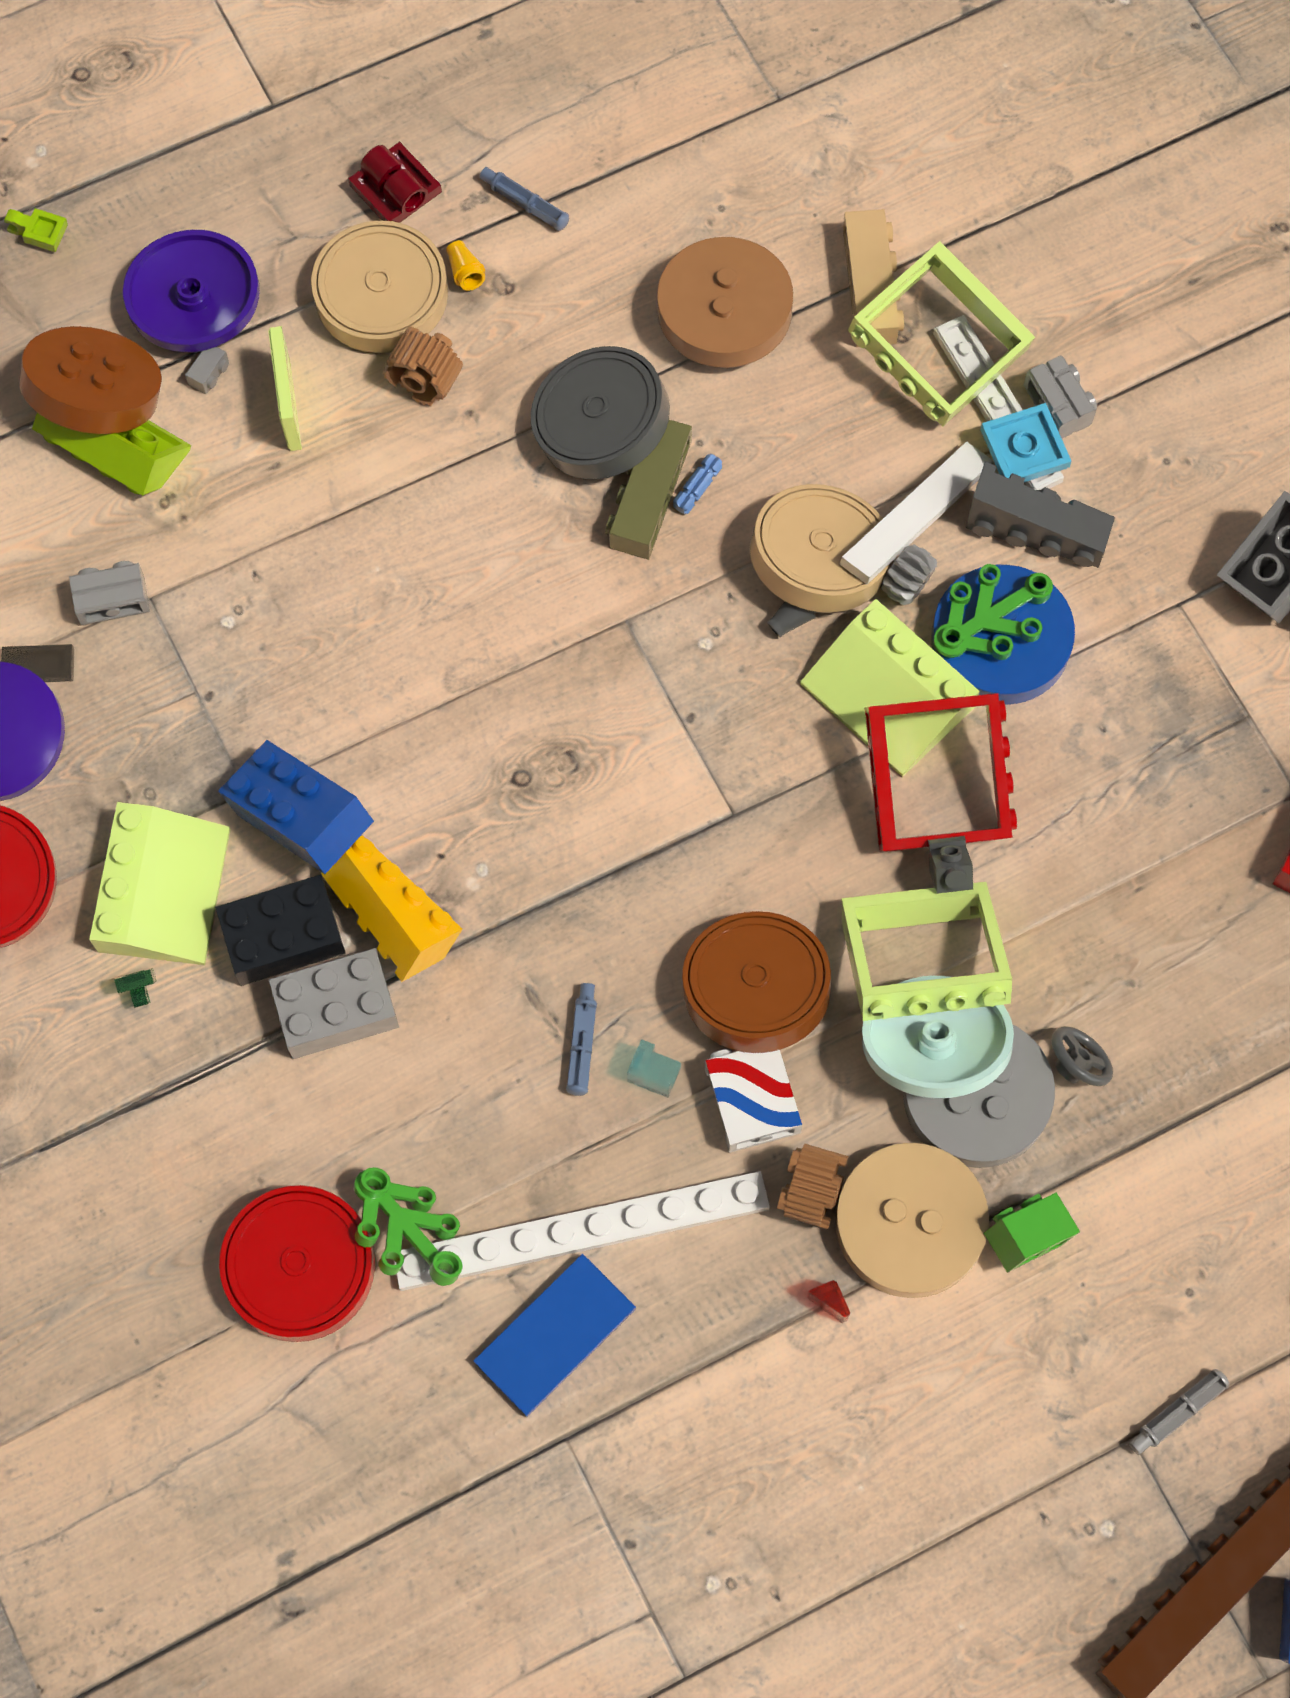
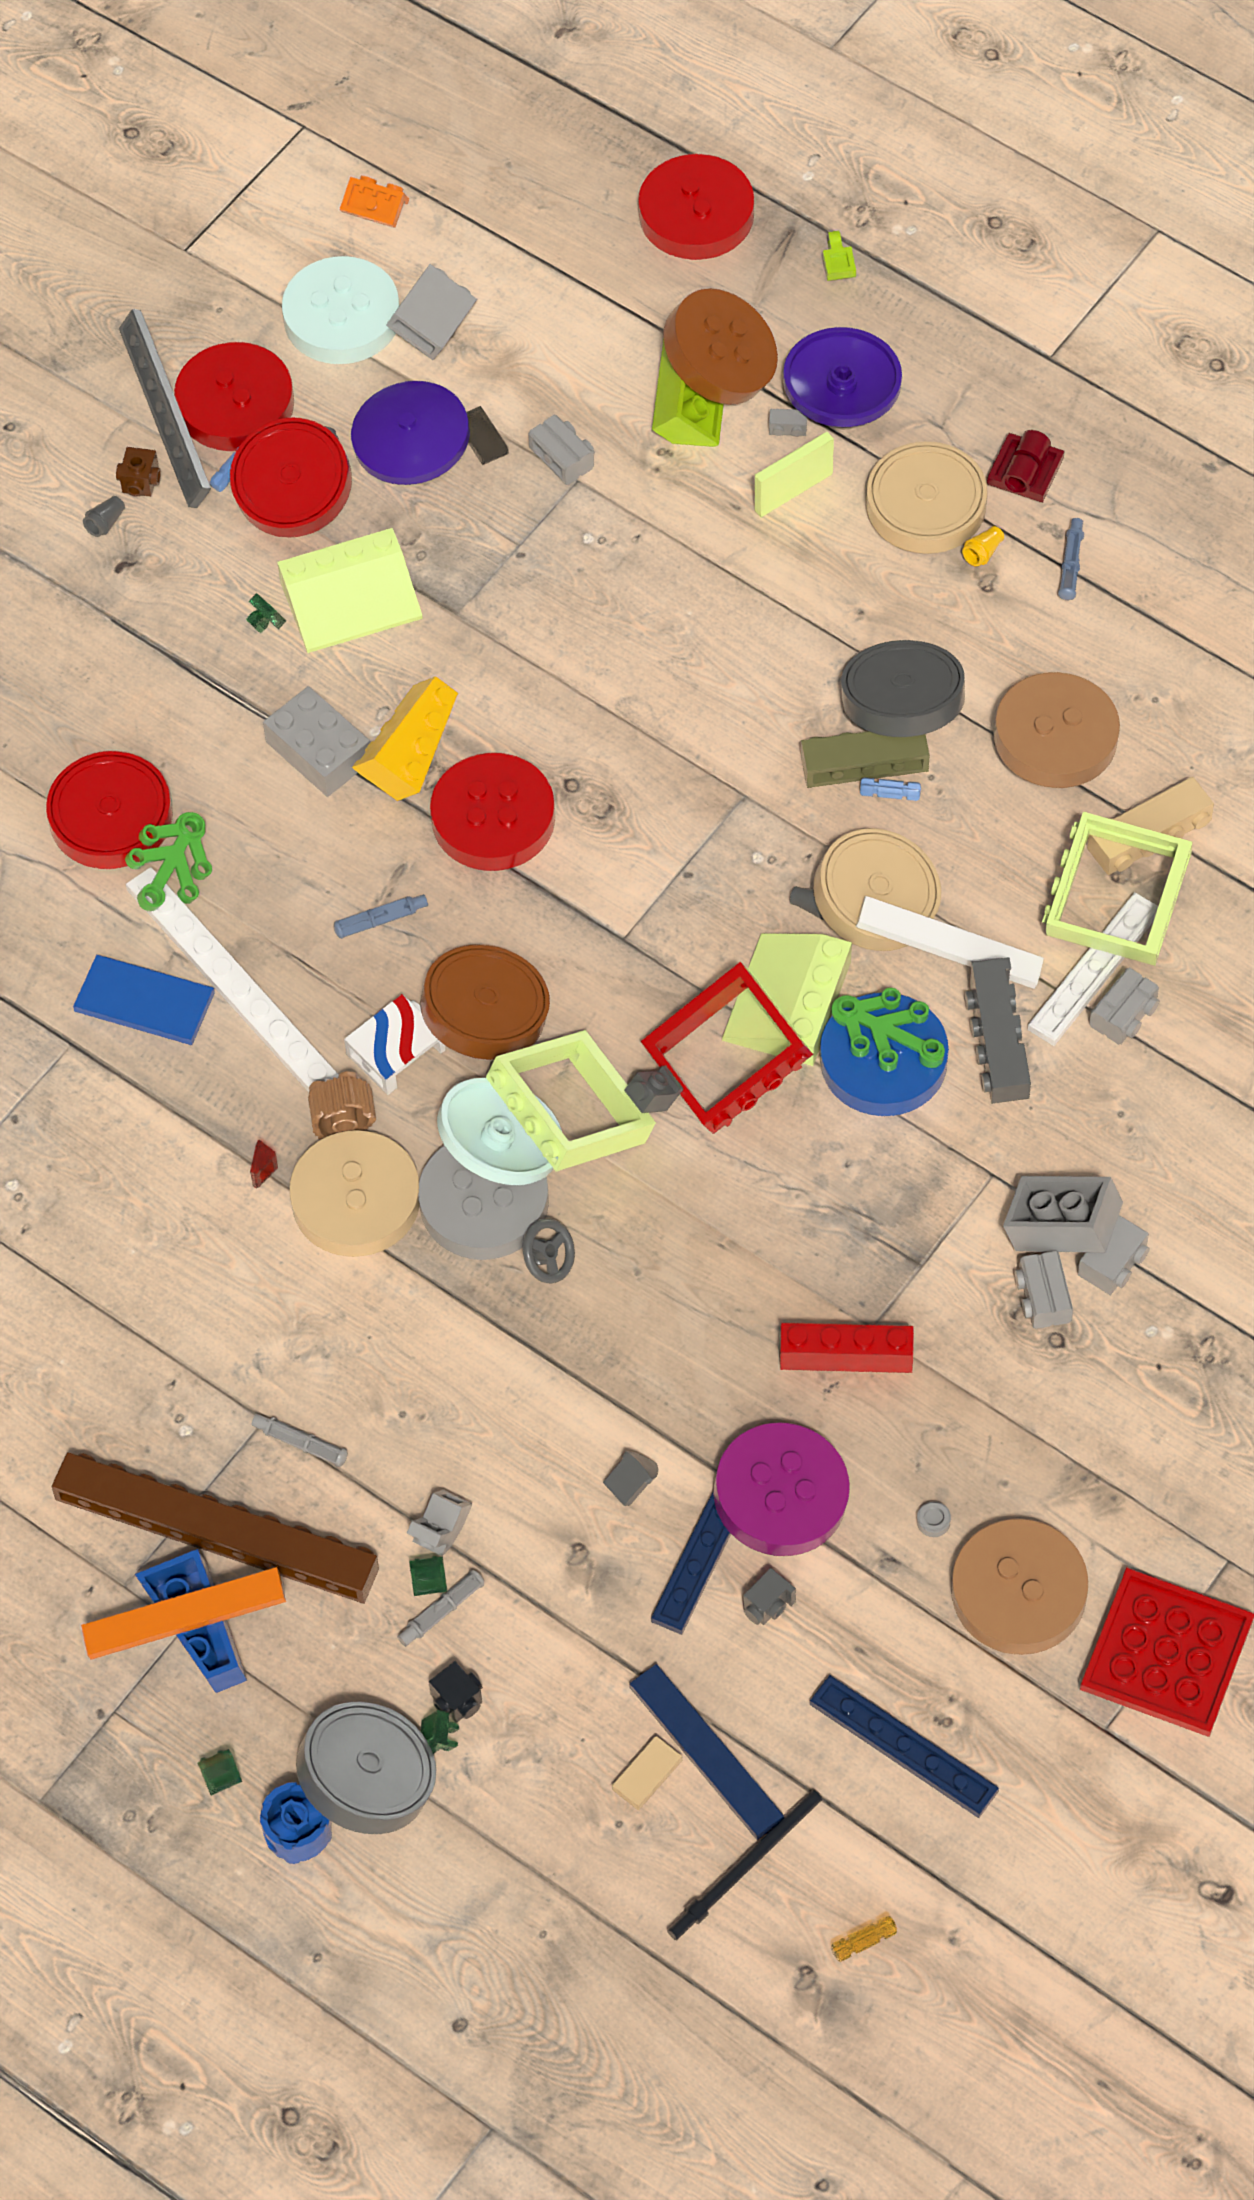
camera: 65 degrees right, 10 degrees down
(280, 930) = (355, 681): black brick -> none
(296, 806) = (450, 637): blue brick -> none
(423, 365) = (871, 554): medium nougat brick -> none
(517, 868) = (492, 811): none -> red brick
(653, 1070) = (381, 970): clear light blue panel -> none
(909, 574) = (892, 961): light grey gear -> none
(1026, 443) = (1059, 995): medium azure plate -> none
(1030, 1232) = (385, 1270): bright green brick -> none

